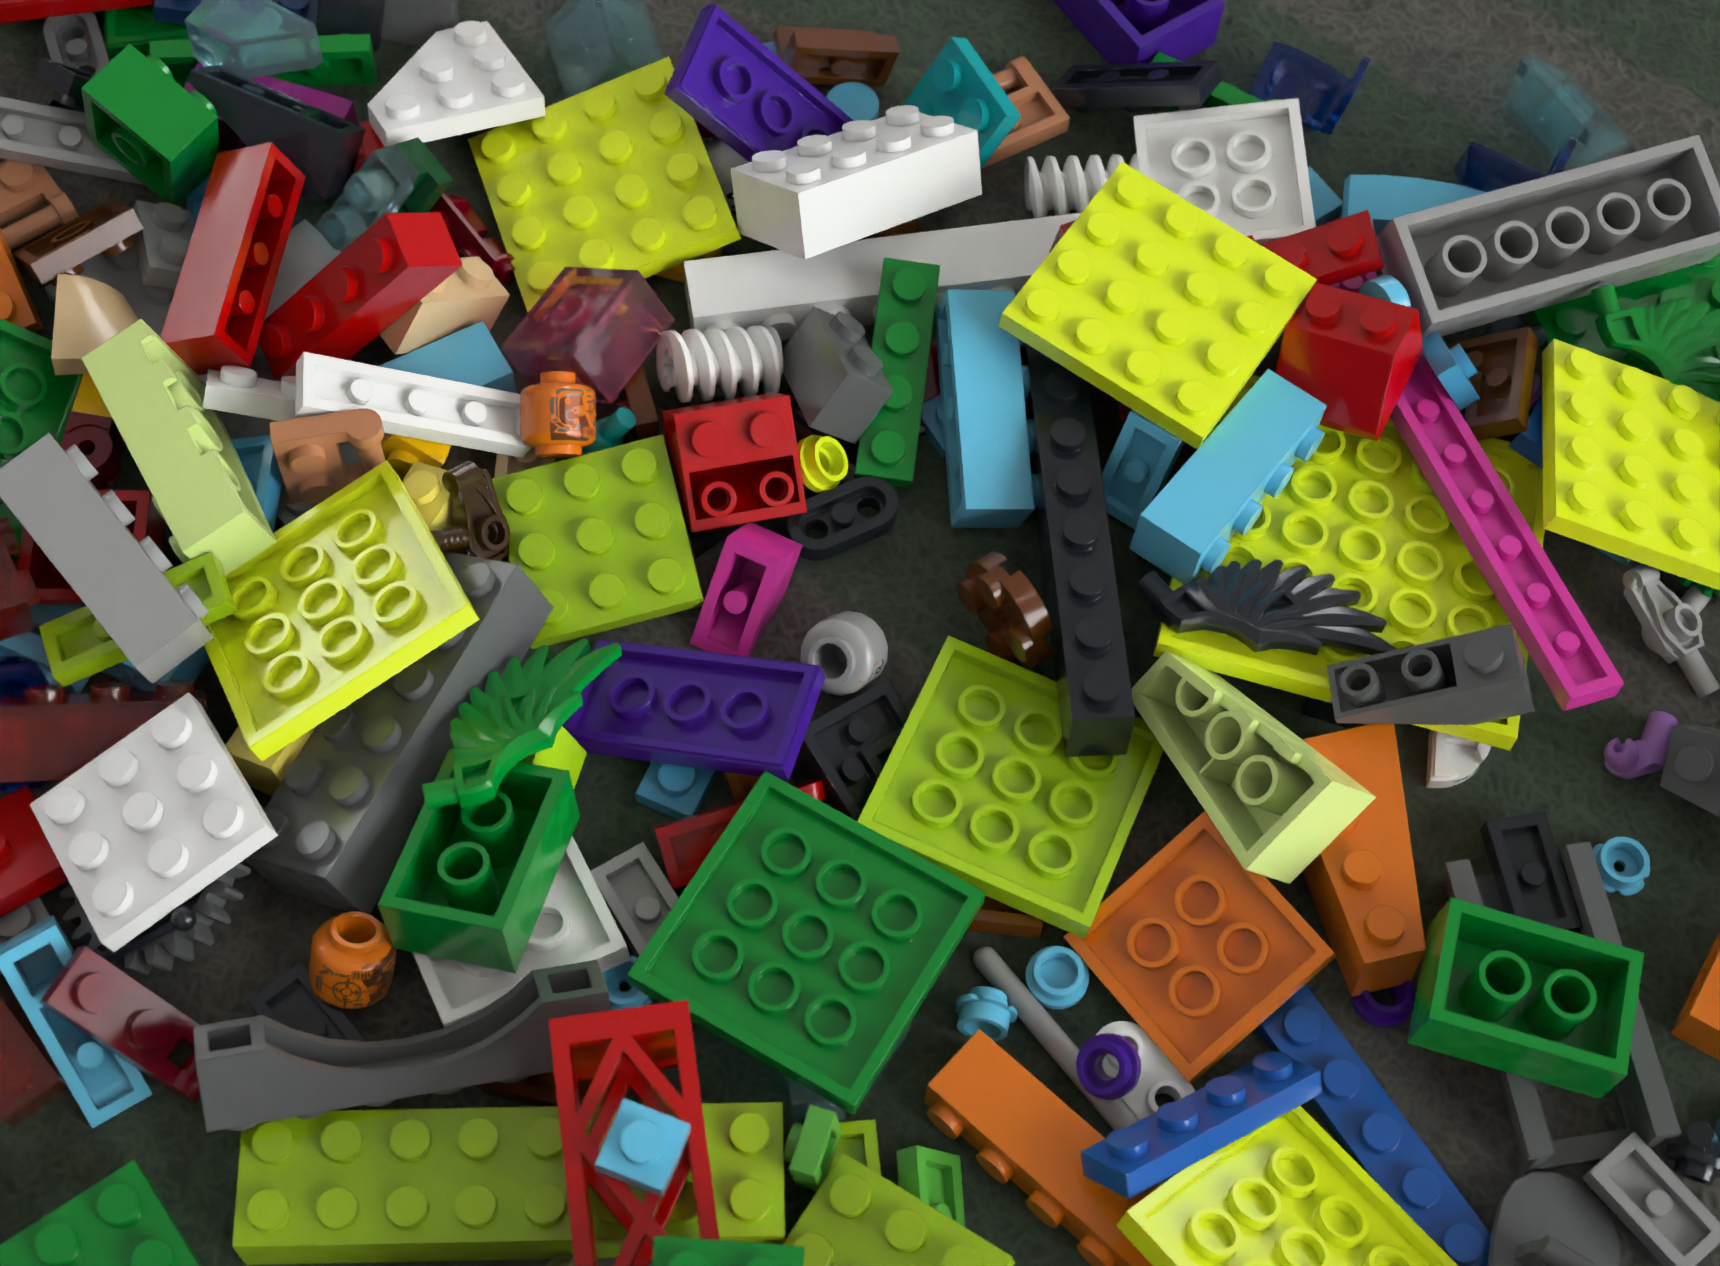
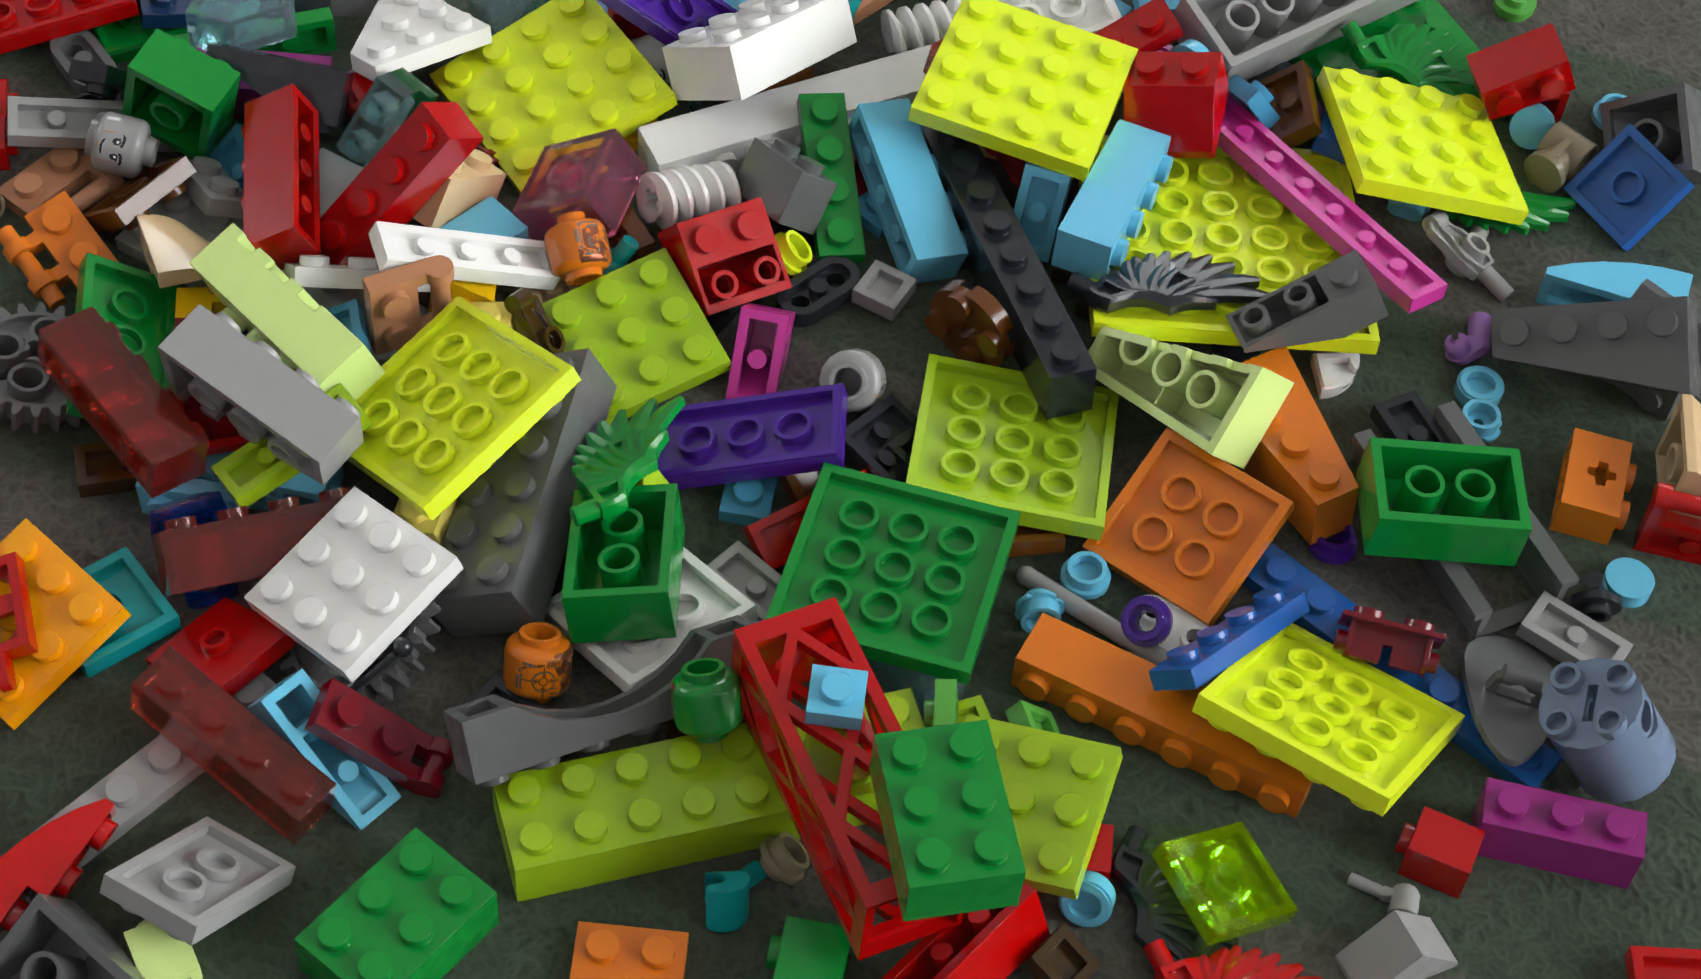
camera: 15 degrees left, 10 degrees down
(74, 173) = (120, 144): none -> light grey head
(512, 1081) = (707, 699): none -> green head
(923, 532) = (884, 290): none -> light grey plate
(1432, 1176) = (1409, 641): none -> dark red hinge
(1635, 814) = (1478, 383): none -> medium azure tile

